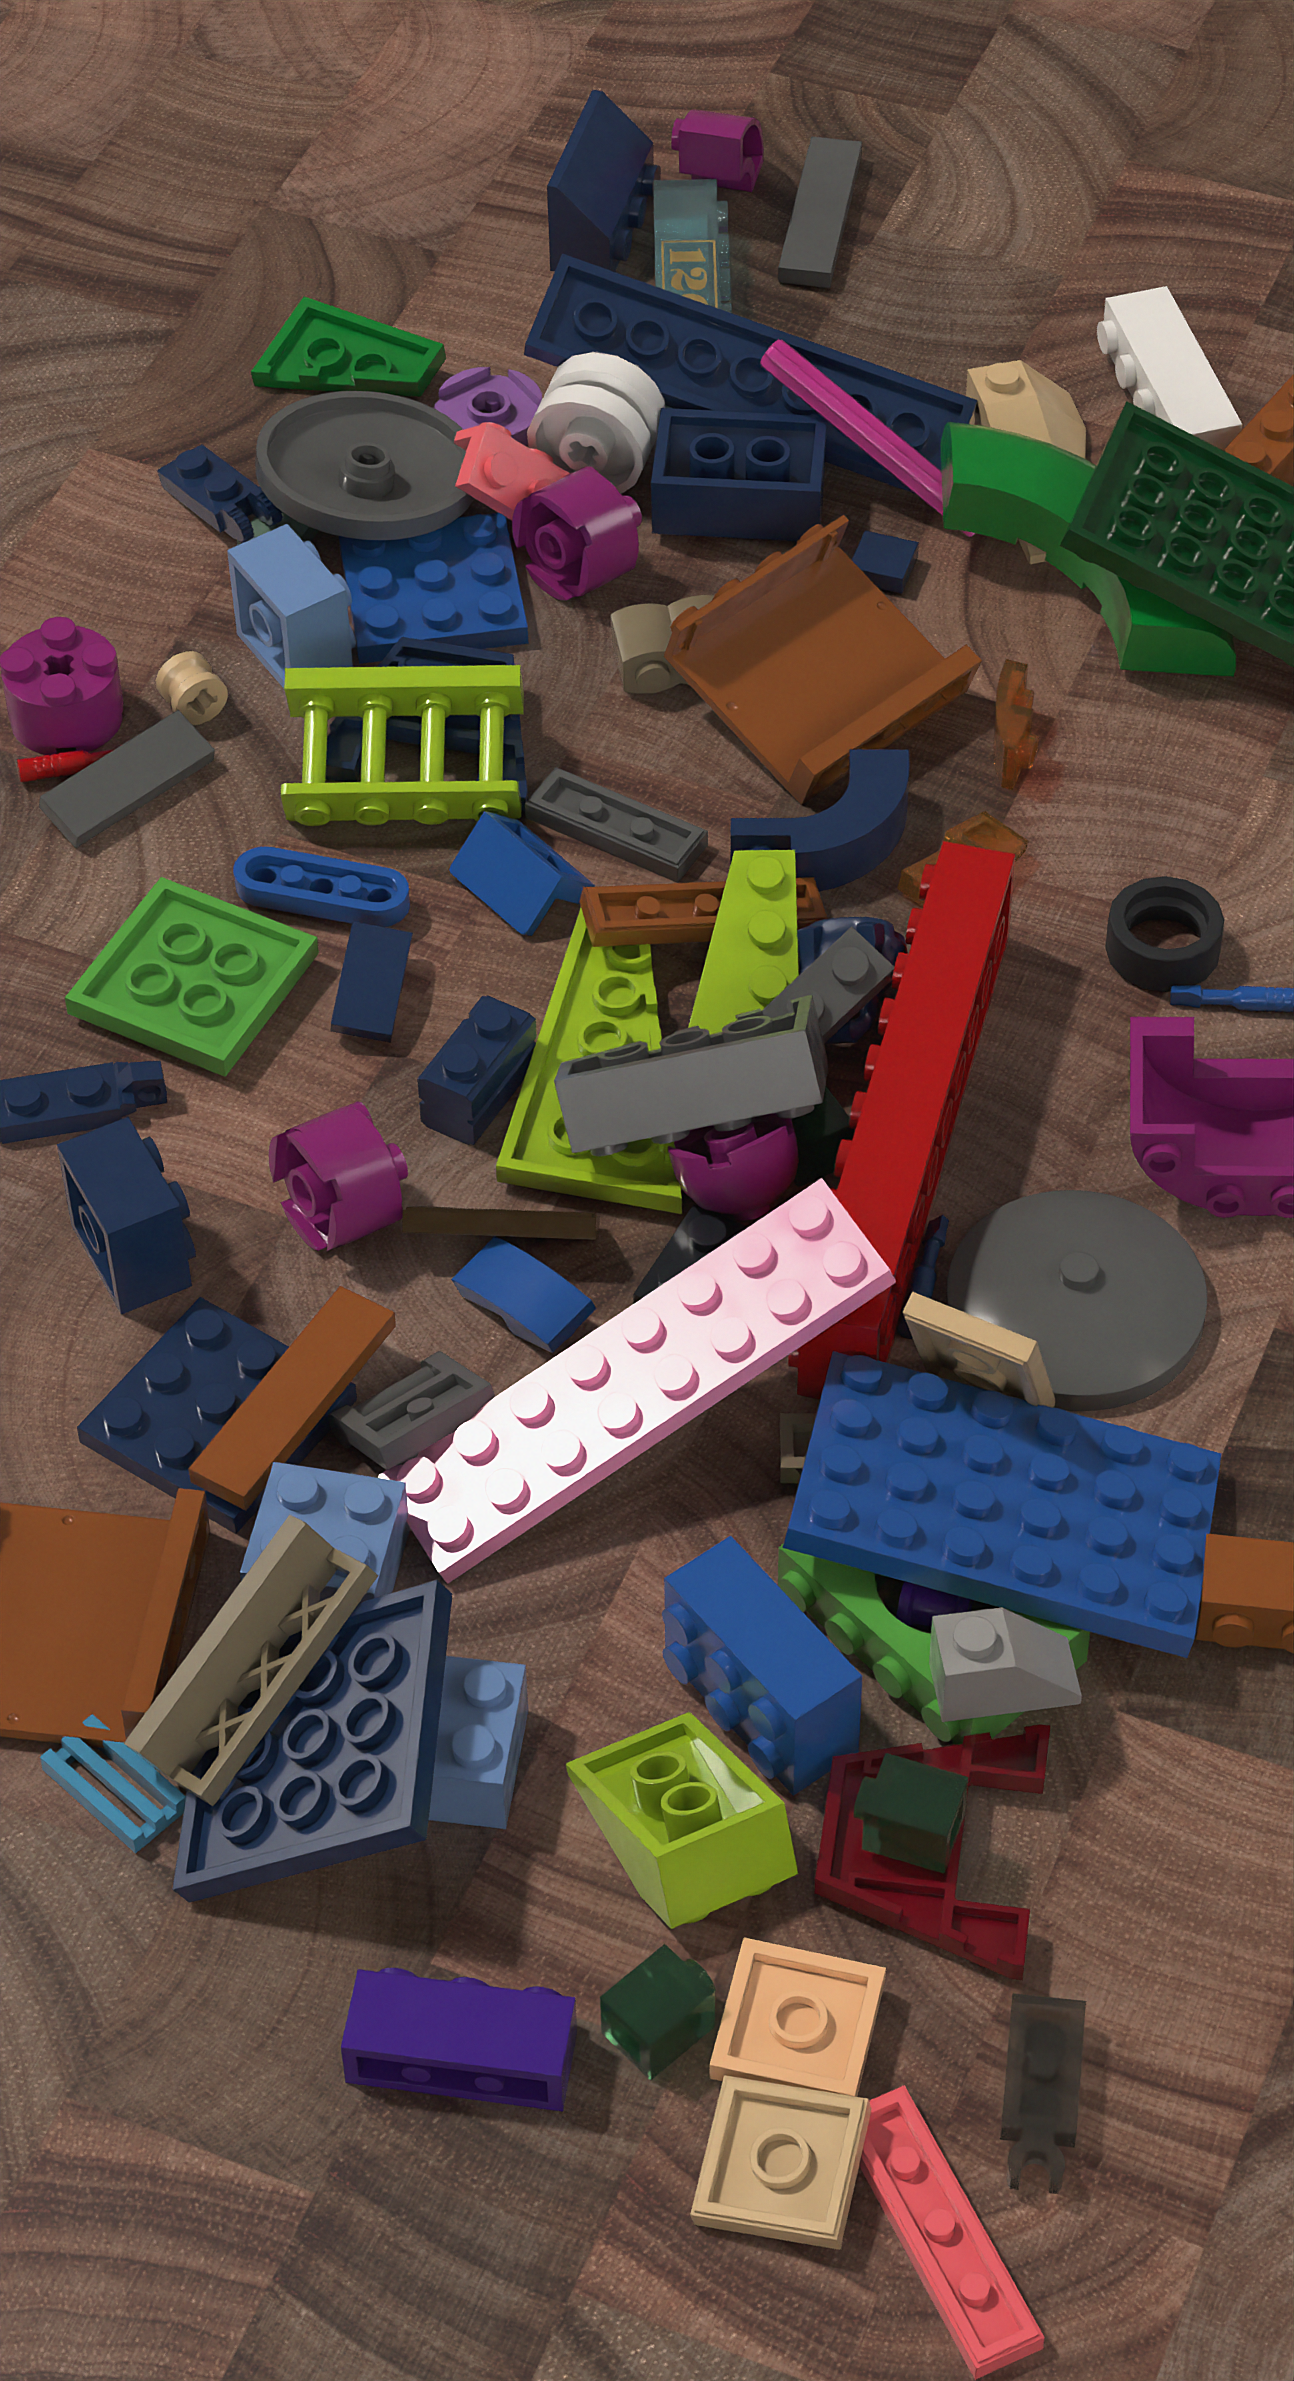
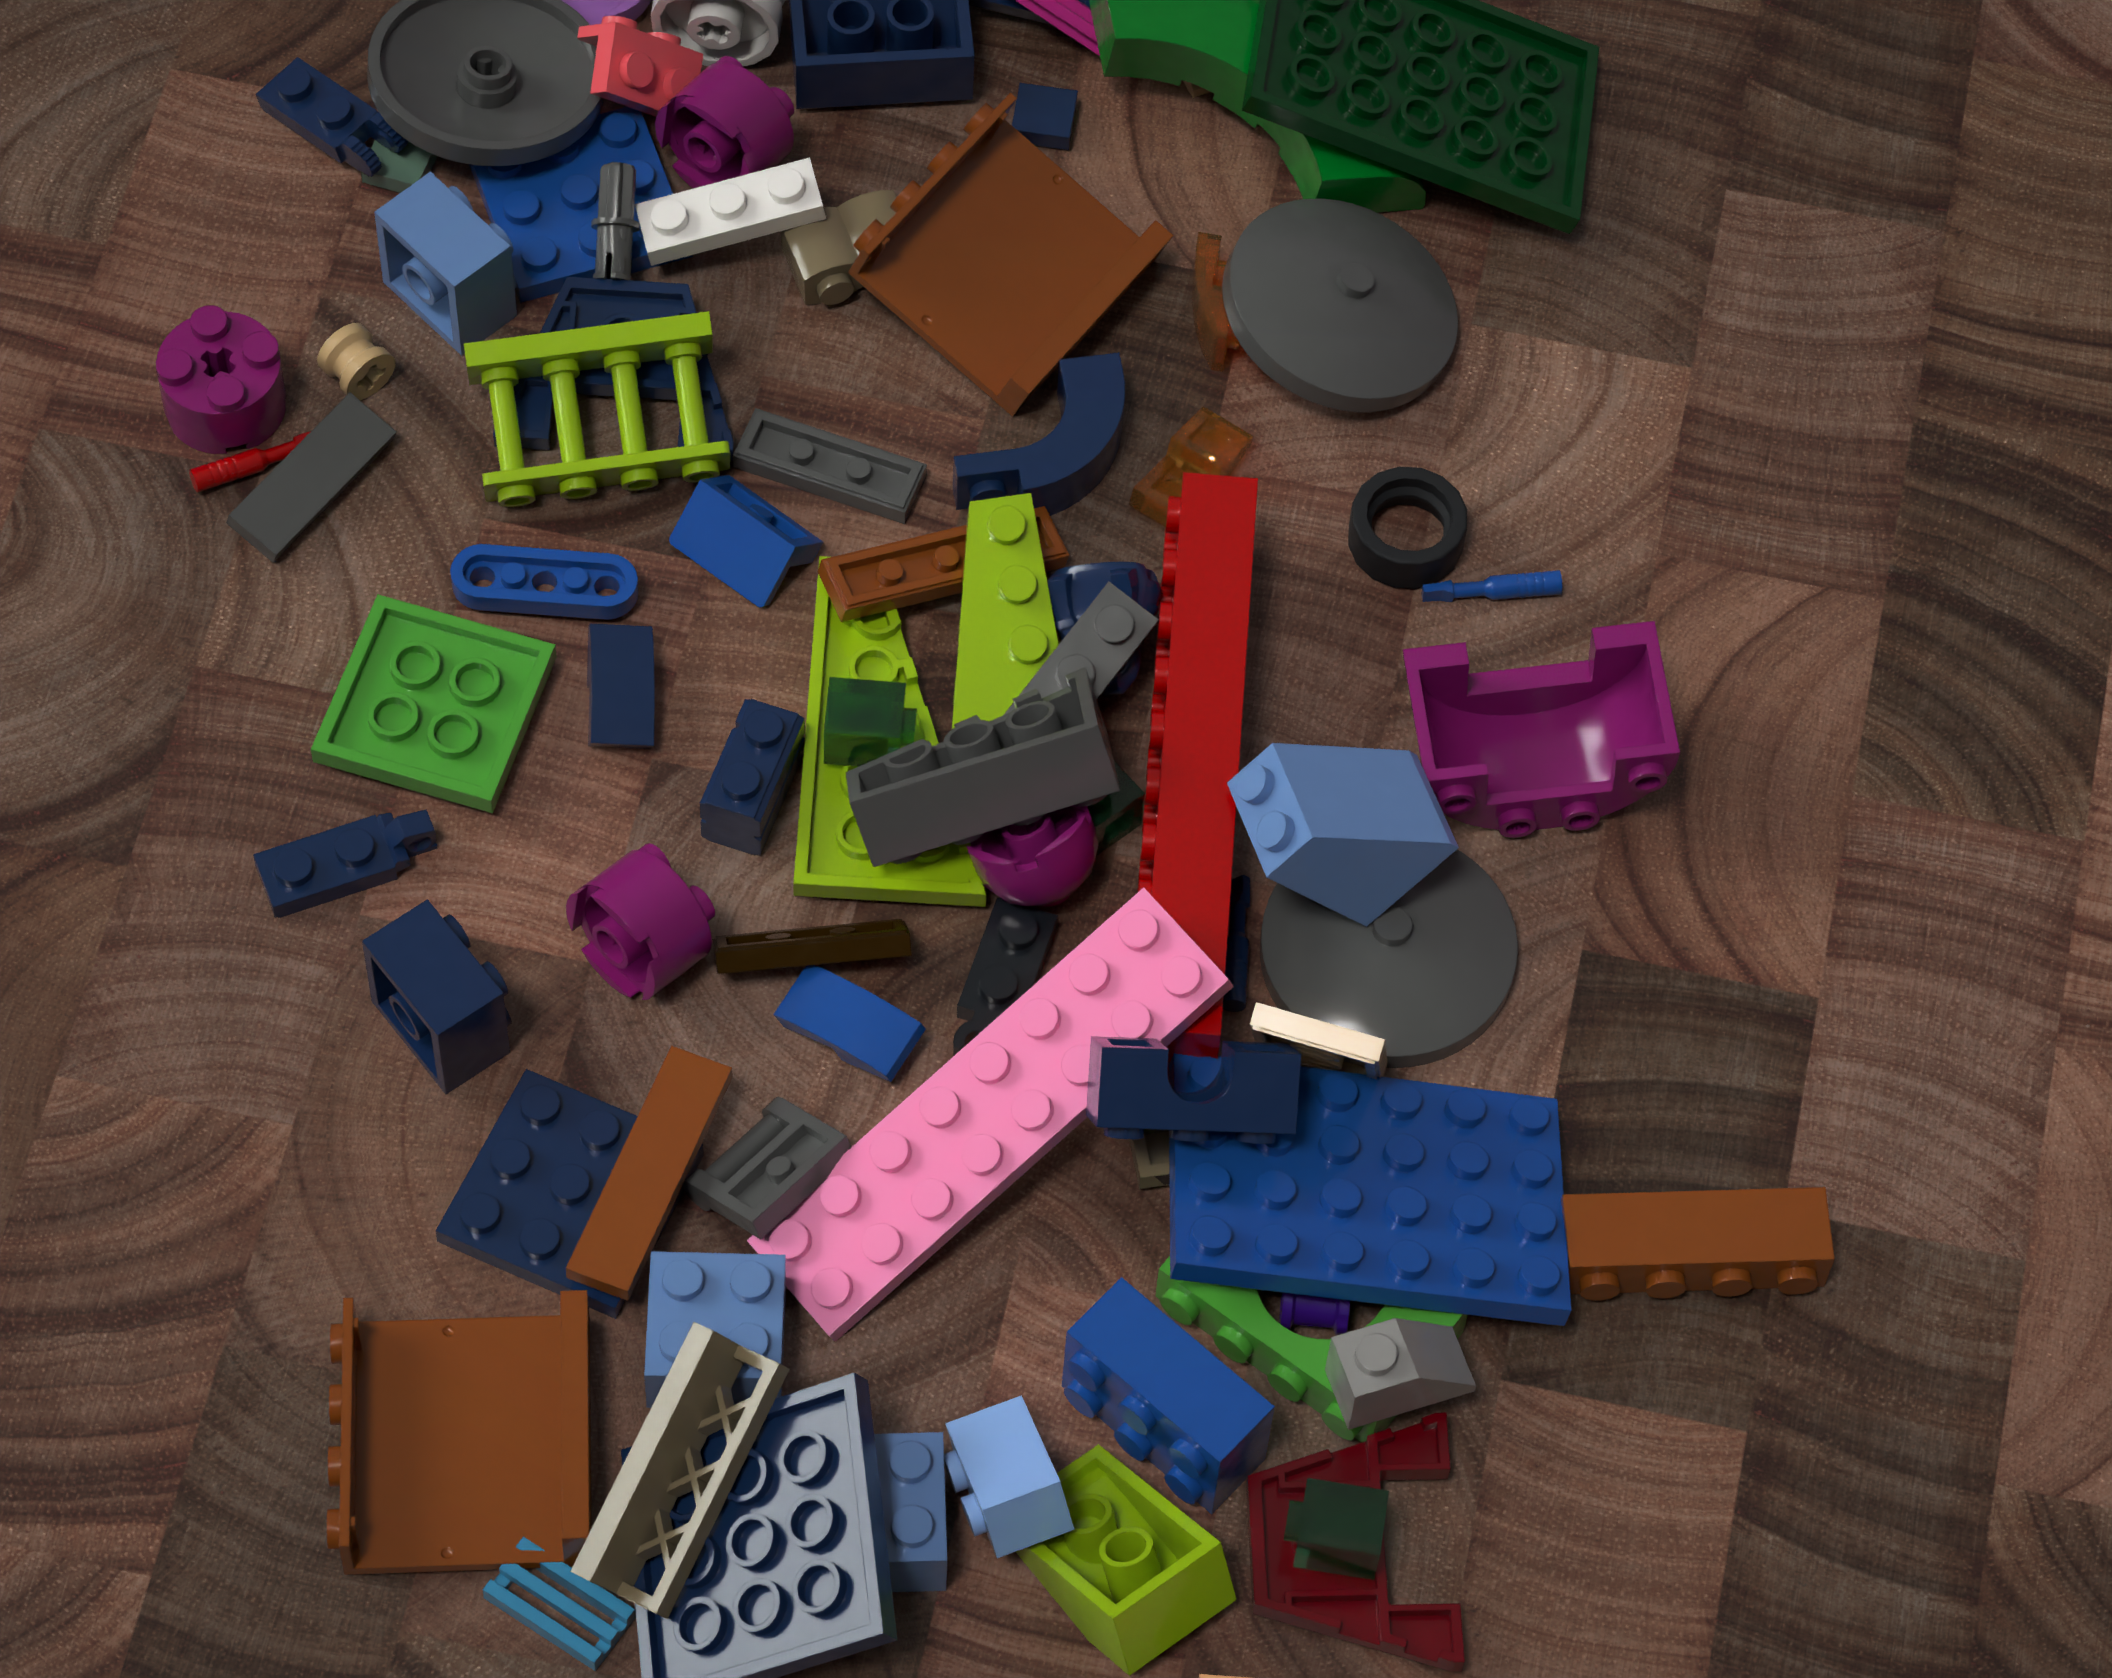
camera: 15 degrees left, 10 degrees up
(456, 593) = (615, 221): none -> dark grey axle
(565, 597) = (730, 211): none -> white plate
(581, 1720) = (1007, 1476): none -> light blue brick
(591, 1021) = (866, 720): none -> clear green brick
(895, 1383) = (1249, 1096): none -> dark blue arch
(1038, 1159) = (1343, 823): none -> medium blue slope
(1133, 737) = (1340, 305): none -> dark grey dish

